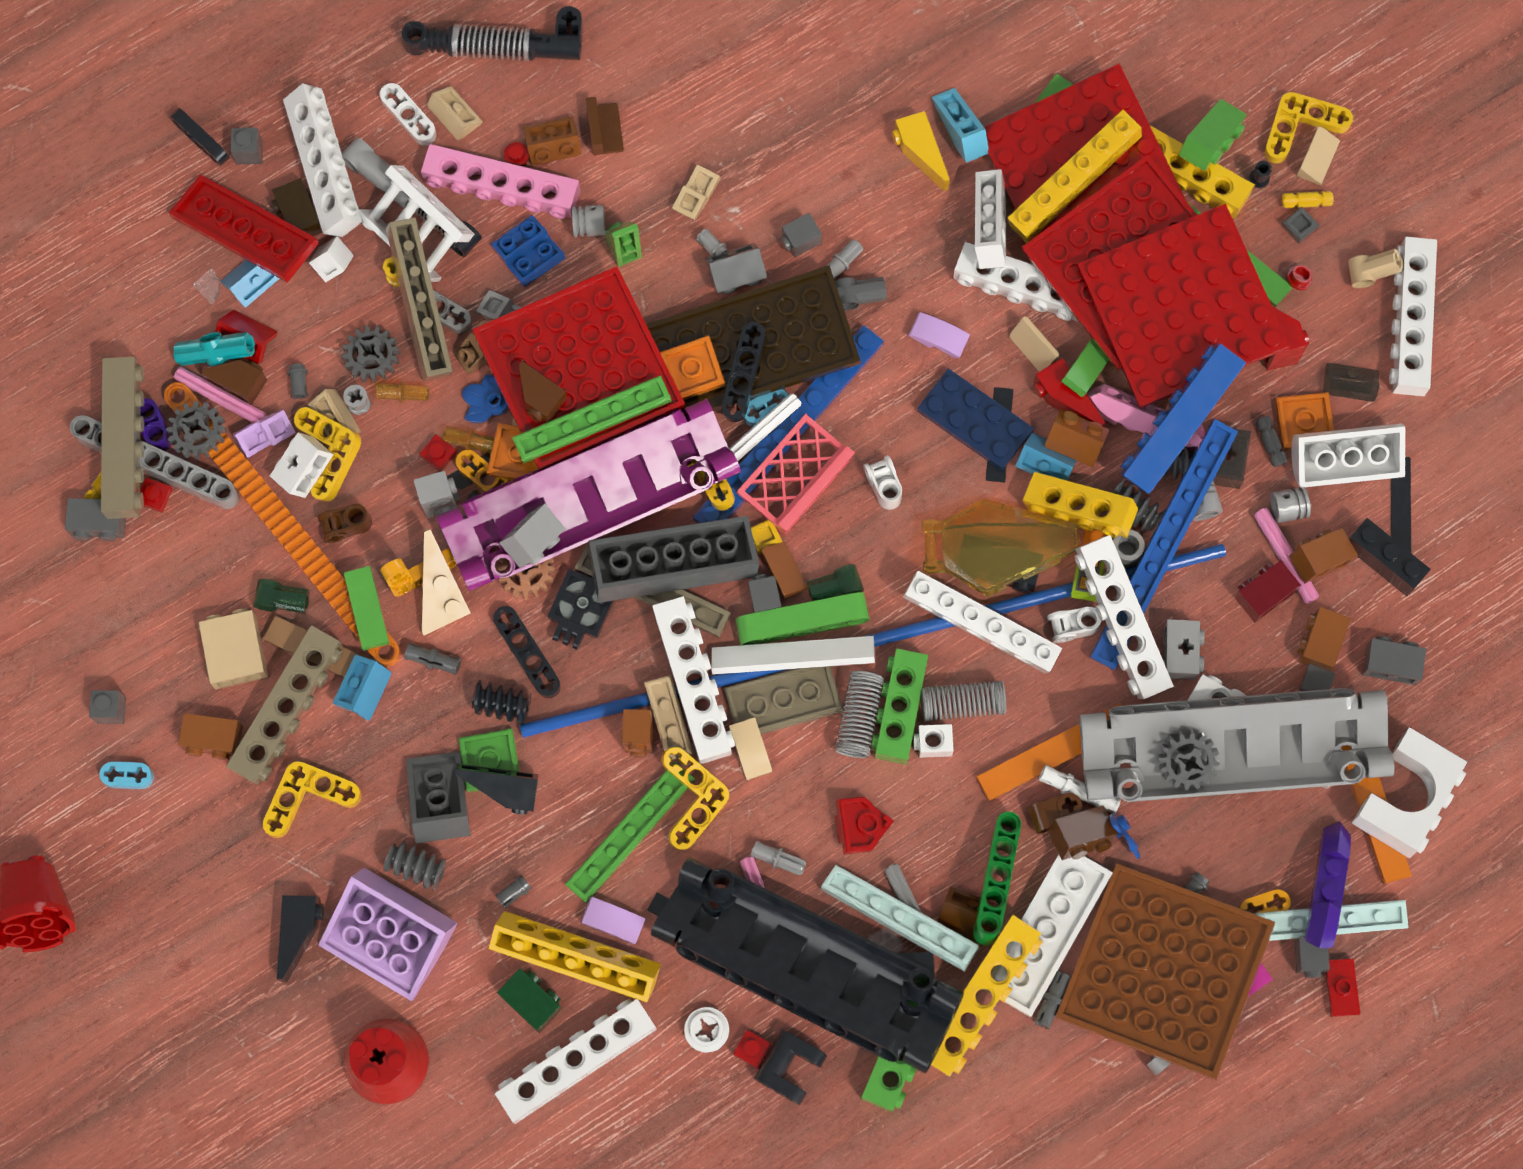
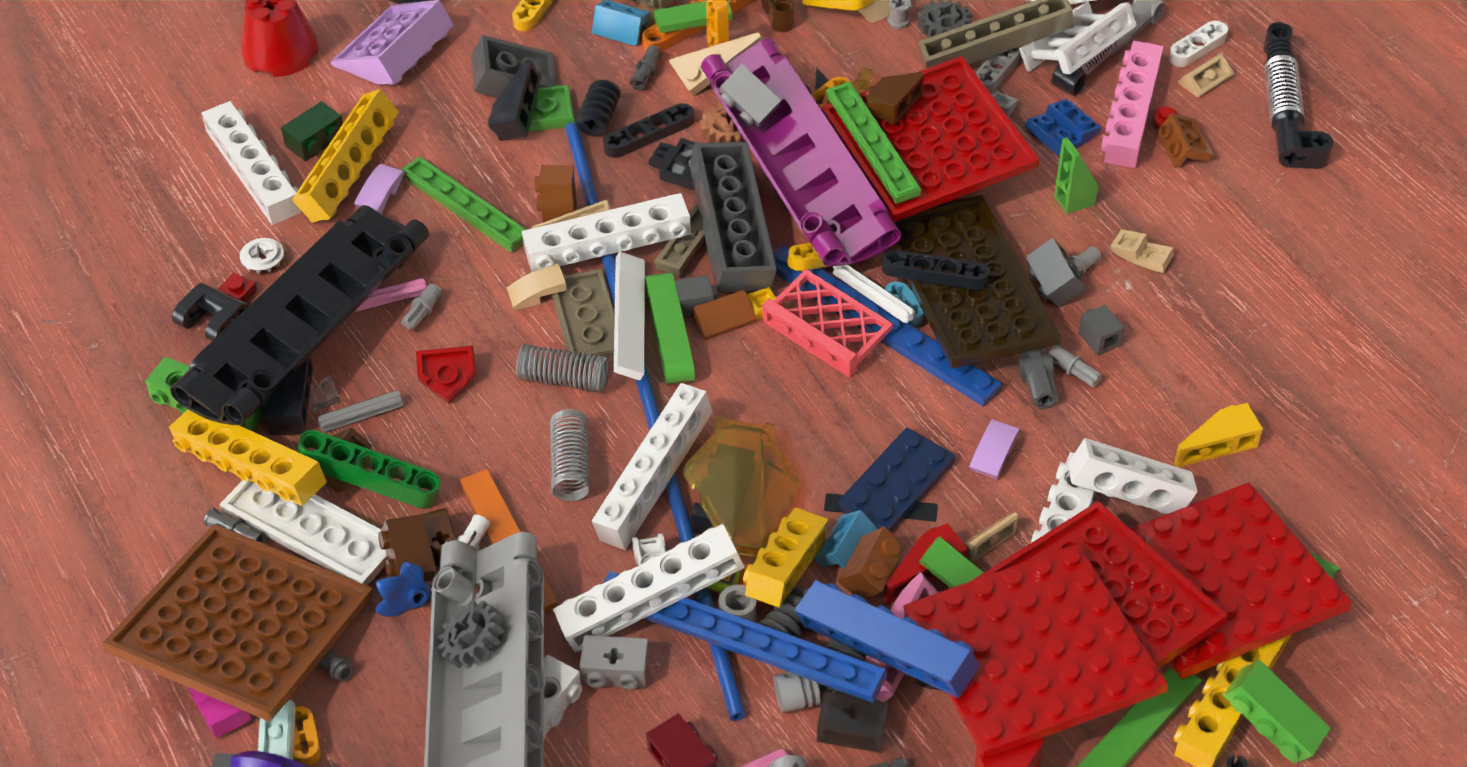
camera: 90 degrees right, 25 degrees down
(401, 392) = (908, 42): clear yellow axle -> none
(415, 866) = (450, 54): dark grey piece -> none
(437, 493) = (803, 52): light grey brick -> none
(438, 453) = (848, 68): red plate -> none
(513, 891) = (421, 125): dark grey pin -> none
(589, 220) = (1100, 162): light grey piece -> none
(604, 127) = (1206, 177): reddish brown panel -> none
(694, 367) = (939, 234): orange tile -> none
(701, 790) = (496, 248): yellow beam -> none
(842, 582) = (706, 358): clear green piece -> none
(884, 478) = (817, 396): white piece -> none
(900, 917) = (342, 392): light aqua tile -> none
(914, 666) = (540, 398): bright green brick -> none
(945, 735) = (528, 432): white brick -> none
(962, 125) = (1255, 467): medium azure slope -> none
(1075, 176) = (1198, 554): yellow brick -> none

